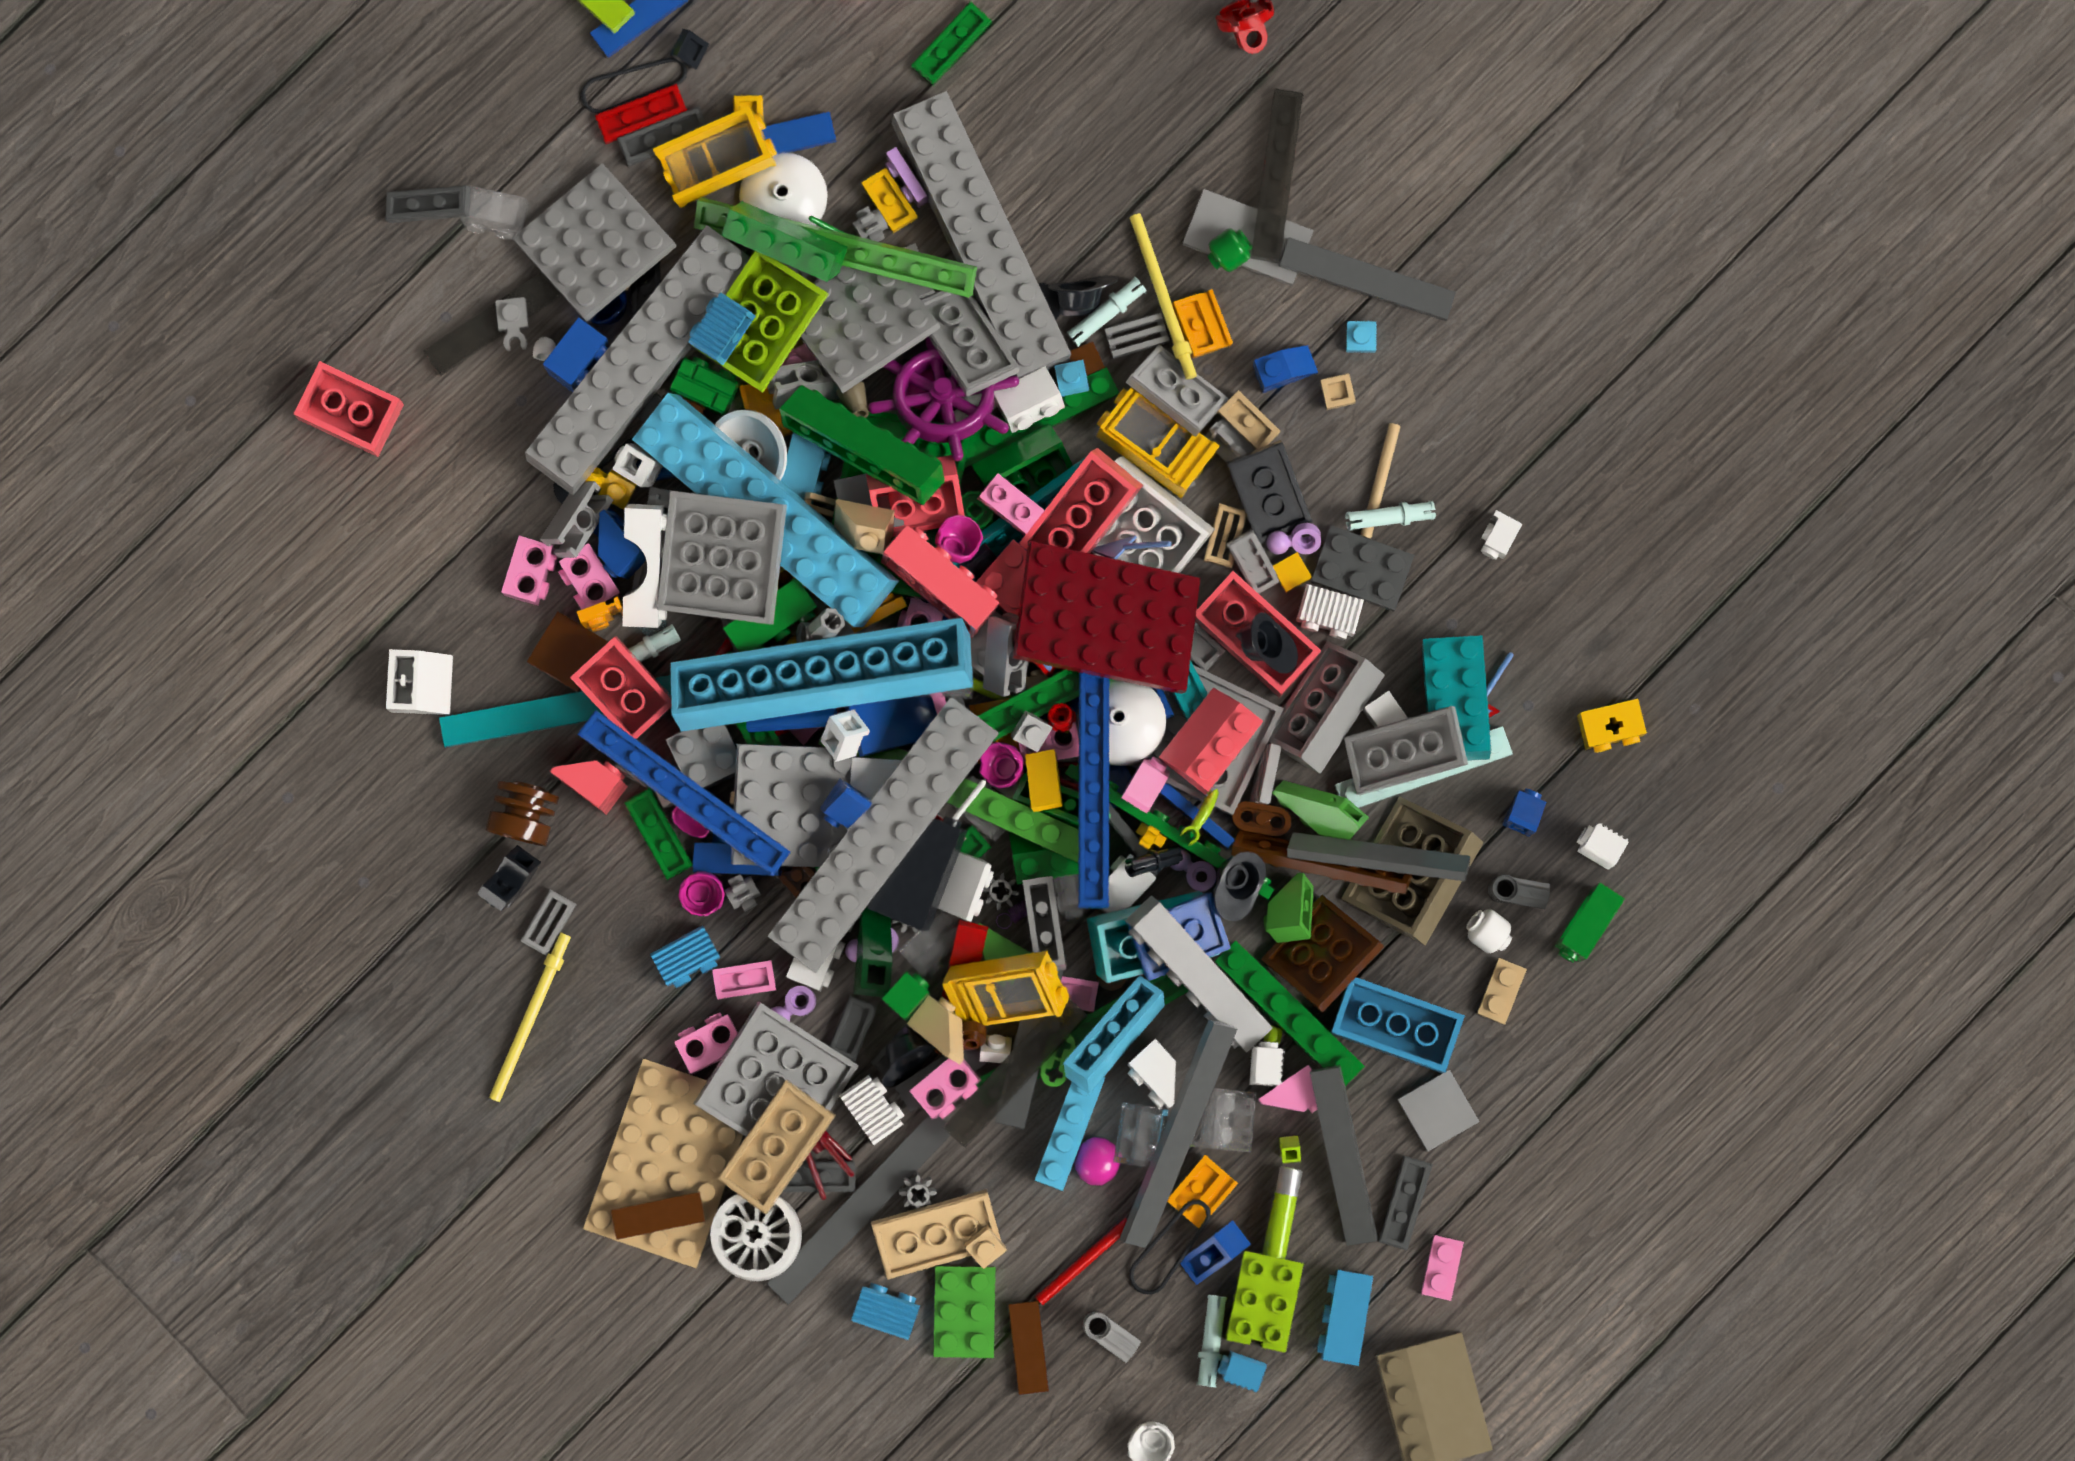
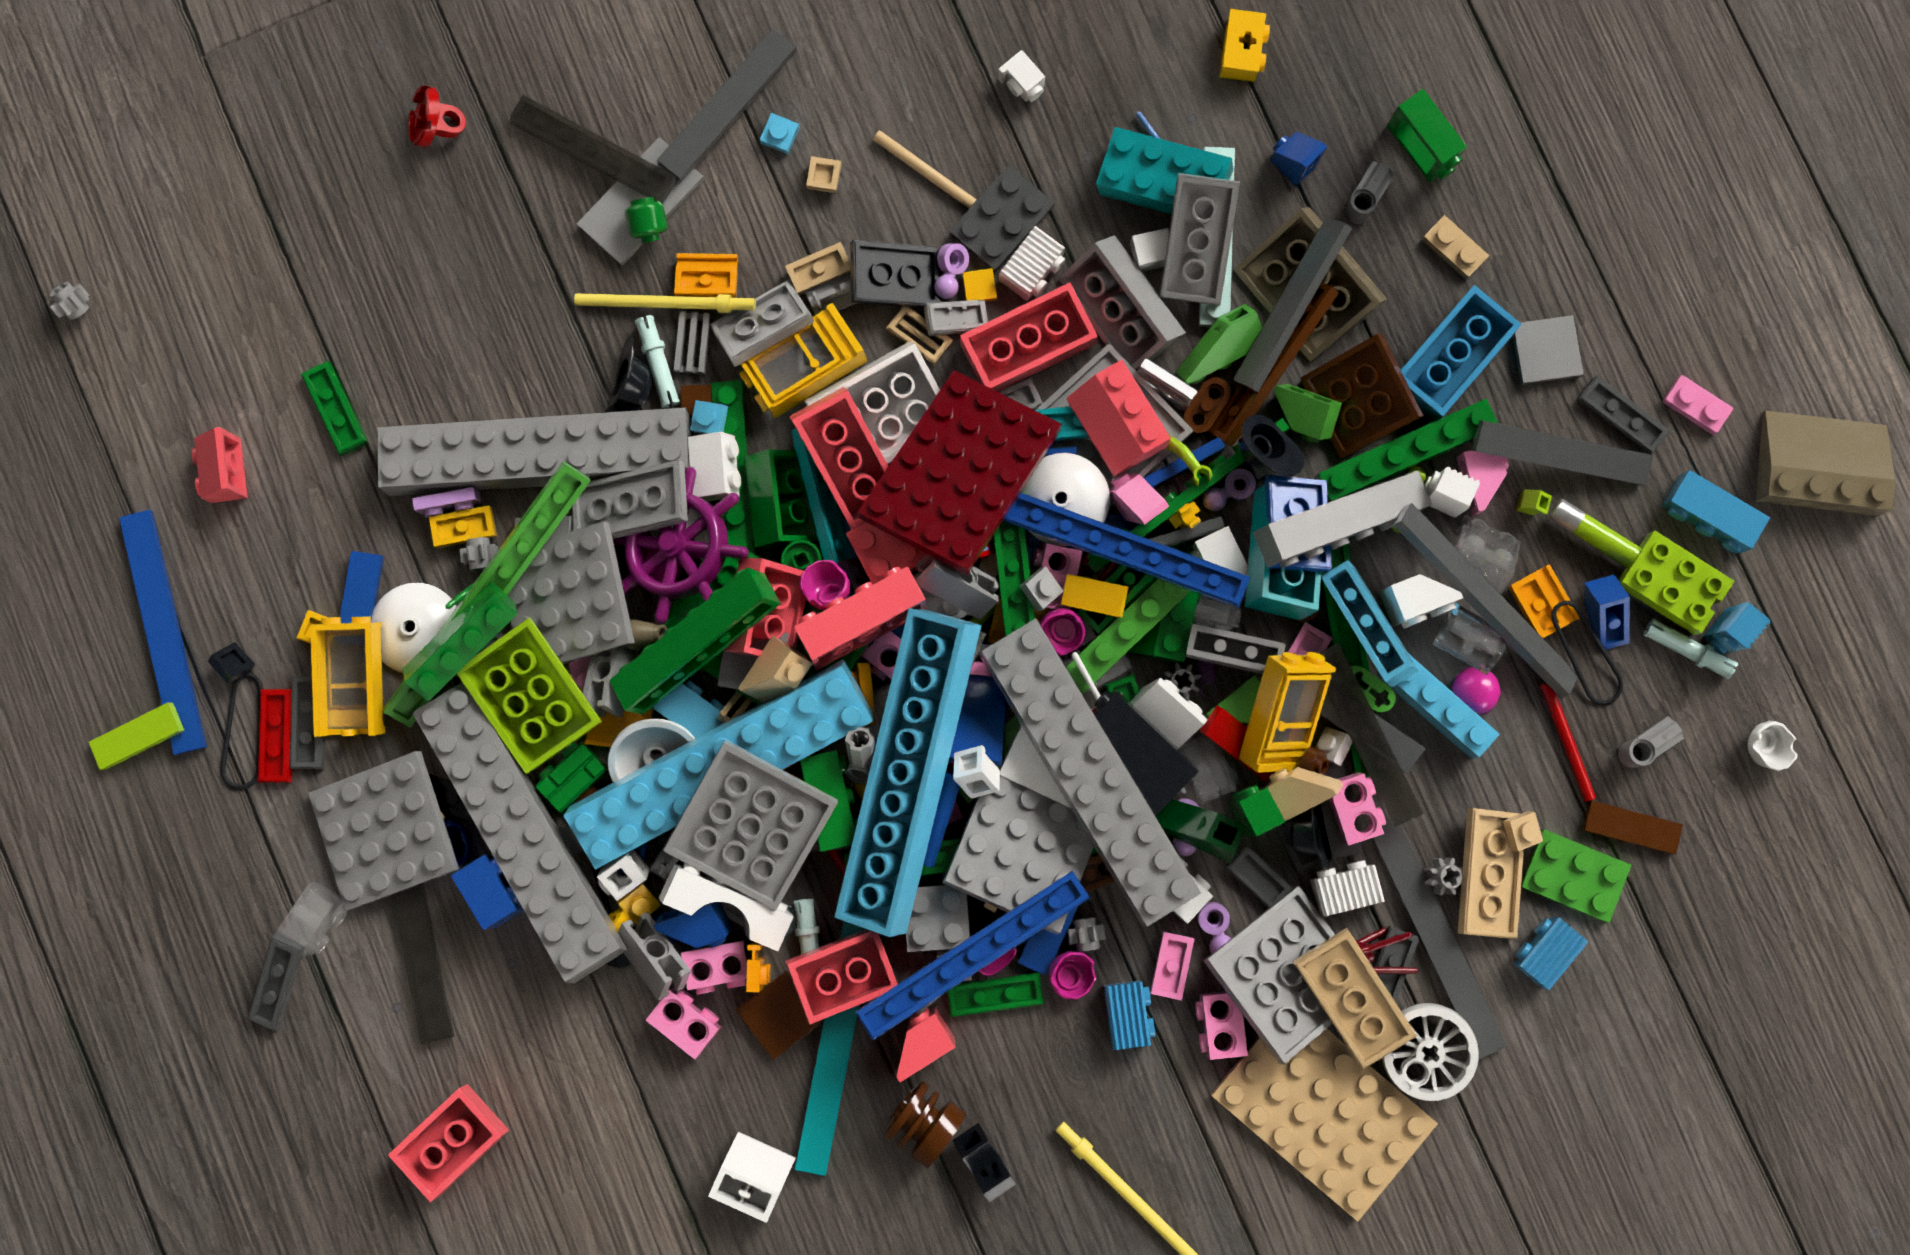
camera: 65 degrees left, 0 degrees up
(512, 318) = (425, 941): light grey plate -> none
(543, 348) = (468, 923): white hinge -> none
(560, 925) = (1023, 1116): light grey tile -> none
(658, 1215) = (1375, 1142): reddish brown tile -> none
(721, 328) = (520, 737): dark azure brick -> none
(844, 805) = (1045, 798): blue slope -> none
(1010, 504) = (811, 520): bright pink brick -> none
(1061, 710) = (1033, 550): red plate -> none
(1116, 548) = (893, 437): medium blue piece -> none
(1153, 861) = (1213, 522): black axle -> none
(1268, 643) = (1045, 327): black piece -> none
(1284, 367) = (780, 216): blue slope -> none
(1390, 515) = (965, 160): light aqua pin -> none
(1489, 931) = (1396, 234): white head -> none
(1601, 845) = (1358, 95): white brick -> none

